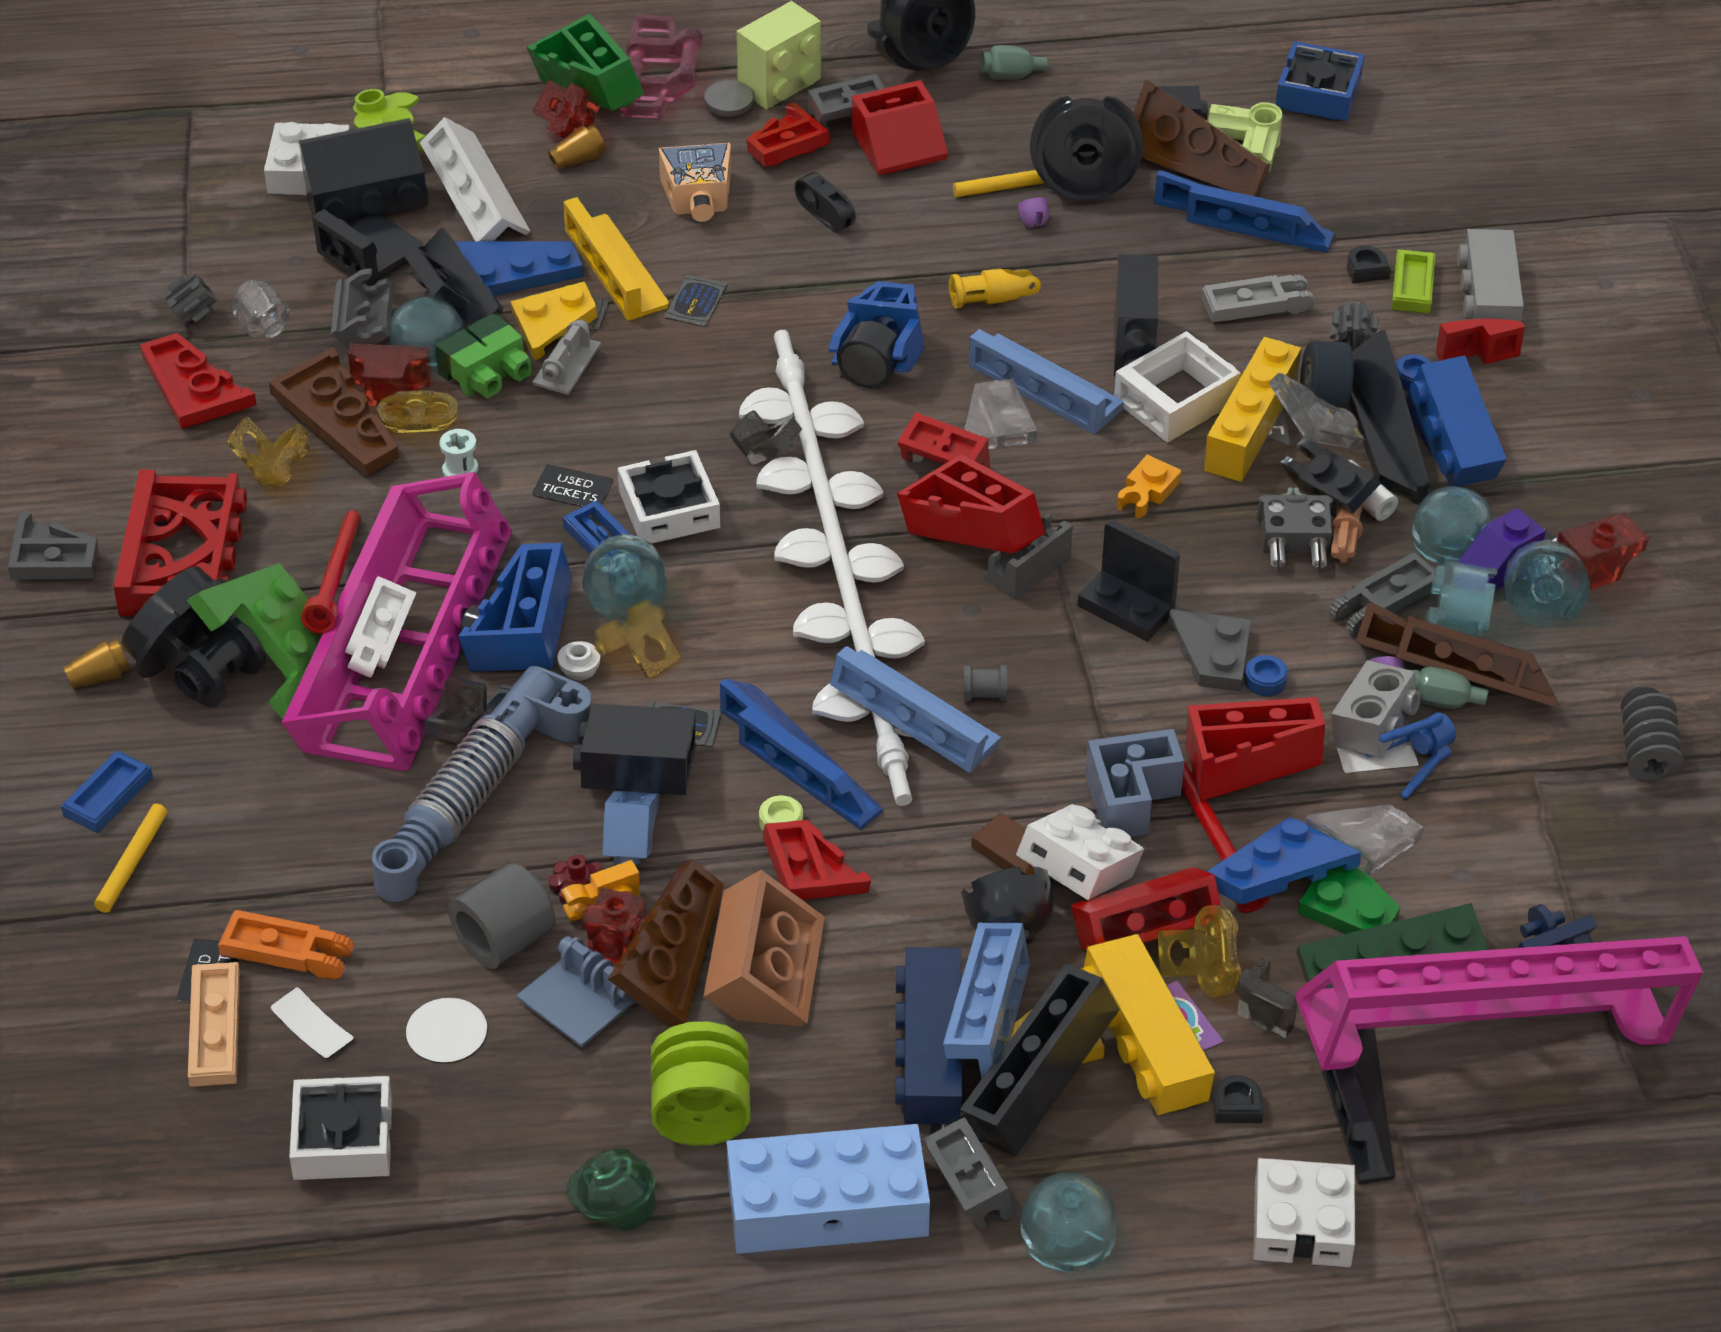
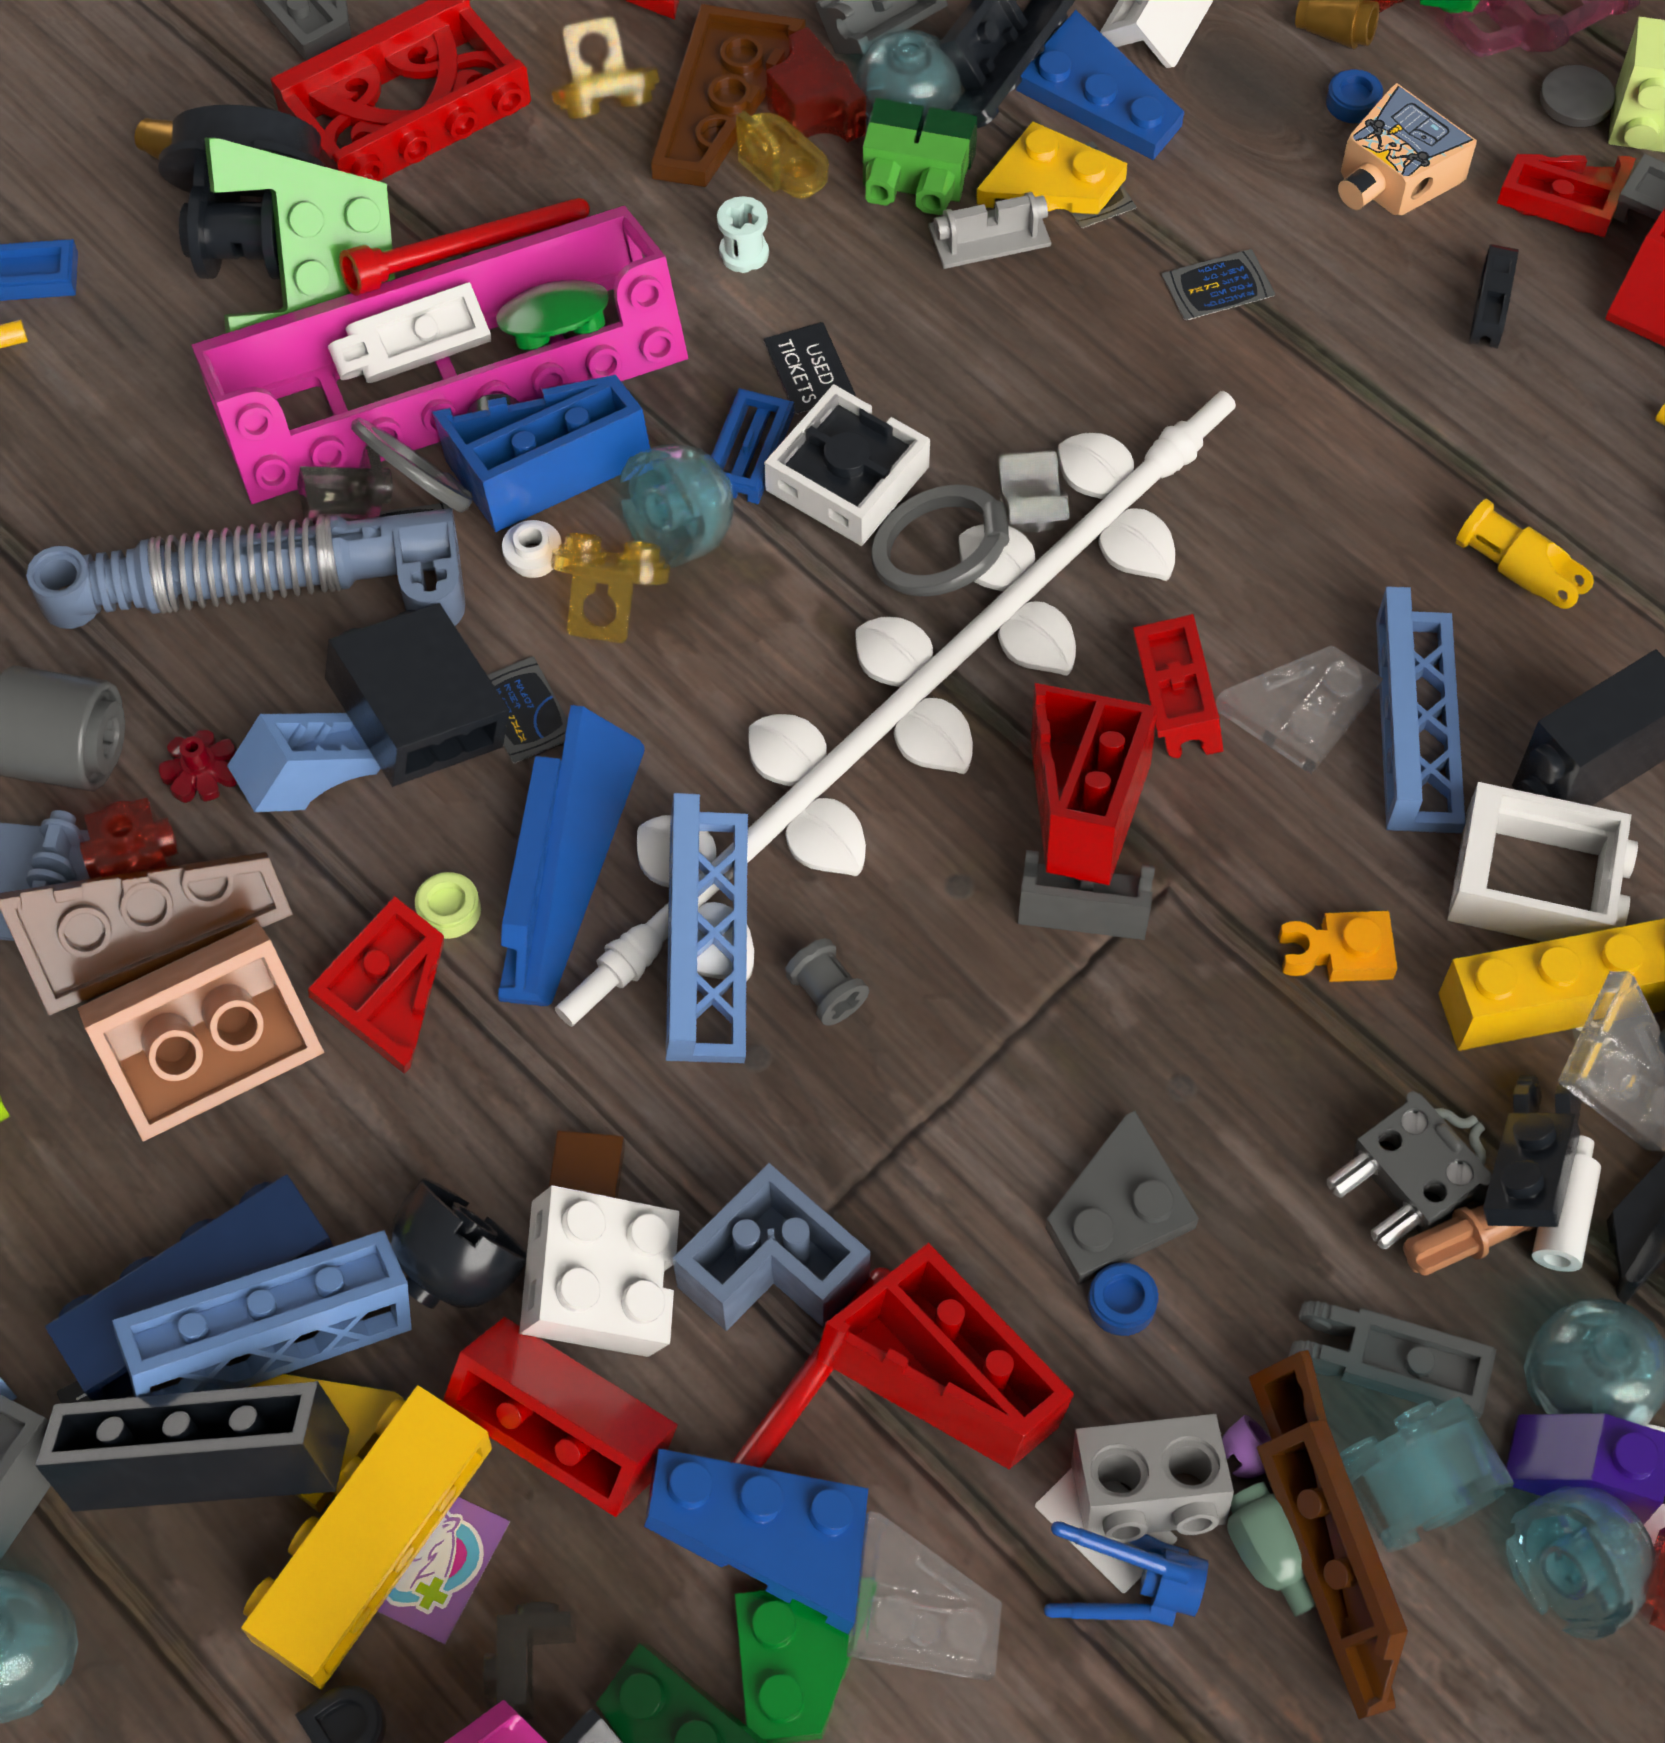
camera: 55 degrees right, 15 degrees up
(431, 557) = (553, 310): none -> green dish
(492, 675) = (414, 466): none -> dark grey piece
(613, 262) = (1194, 170): yellow panel -> none
(617, 878) = (190, 809): light orange plate -> none
(632, 176) = (1353, 95): none -> blue tile
(749, 459) = (966, 572): none -> dark grey piece
(878, 334) = (1344, 472): piece -> none
(1134, 582) = (1121, 1044): black bracket -> none
(1210, 949) = (567, 1524): clear yellow bracket -> none

